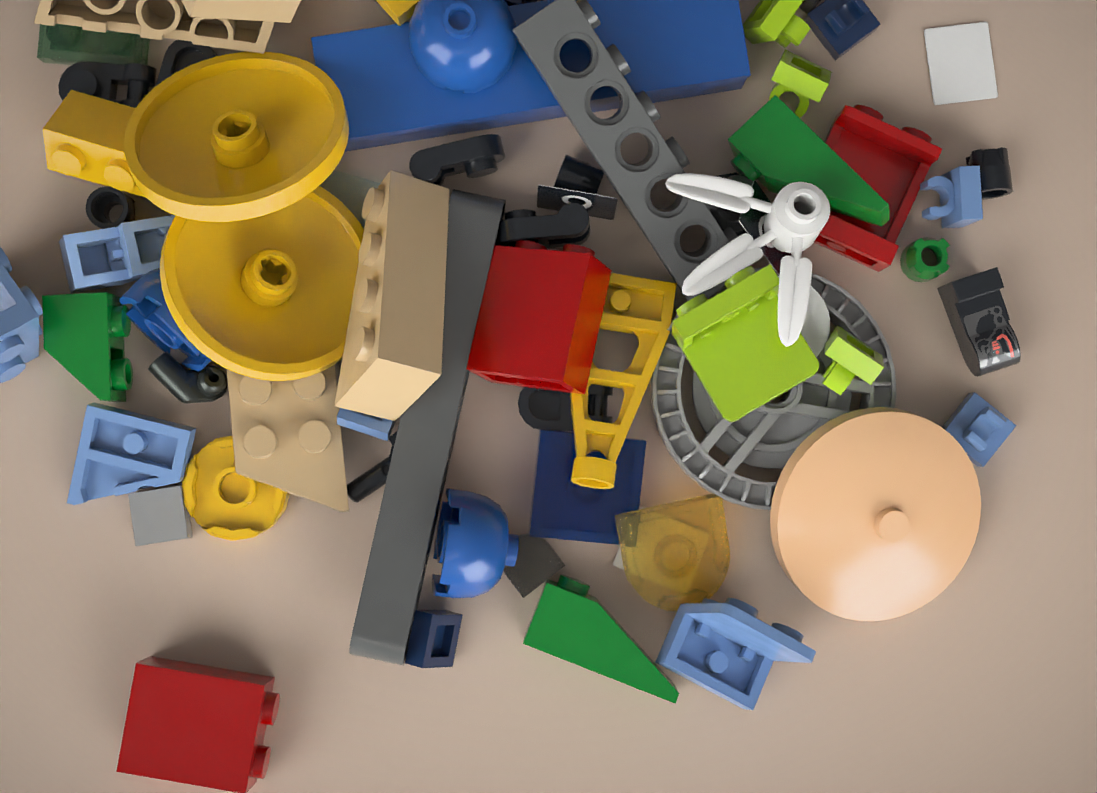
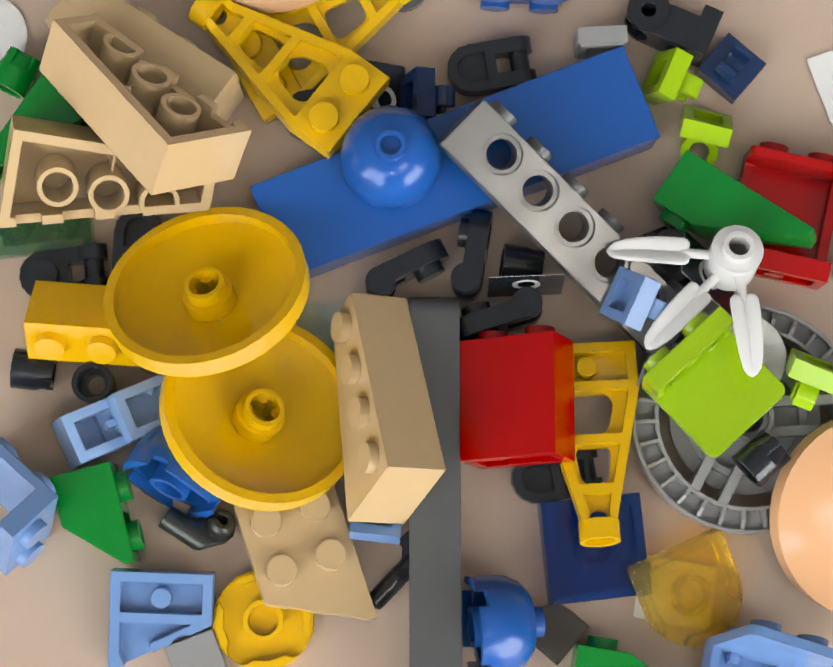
camera: 15 degrees left, 5 degrees down
(51, 185) = (31, 373): none -> black hose
(536, 143) = (475, 237): none -> black plate
(680, 238) = (632, 299): none -> medium blue tile
(778, 433) = (761, 458): none -> black hose

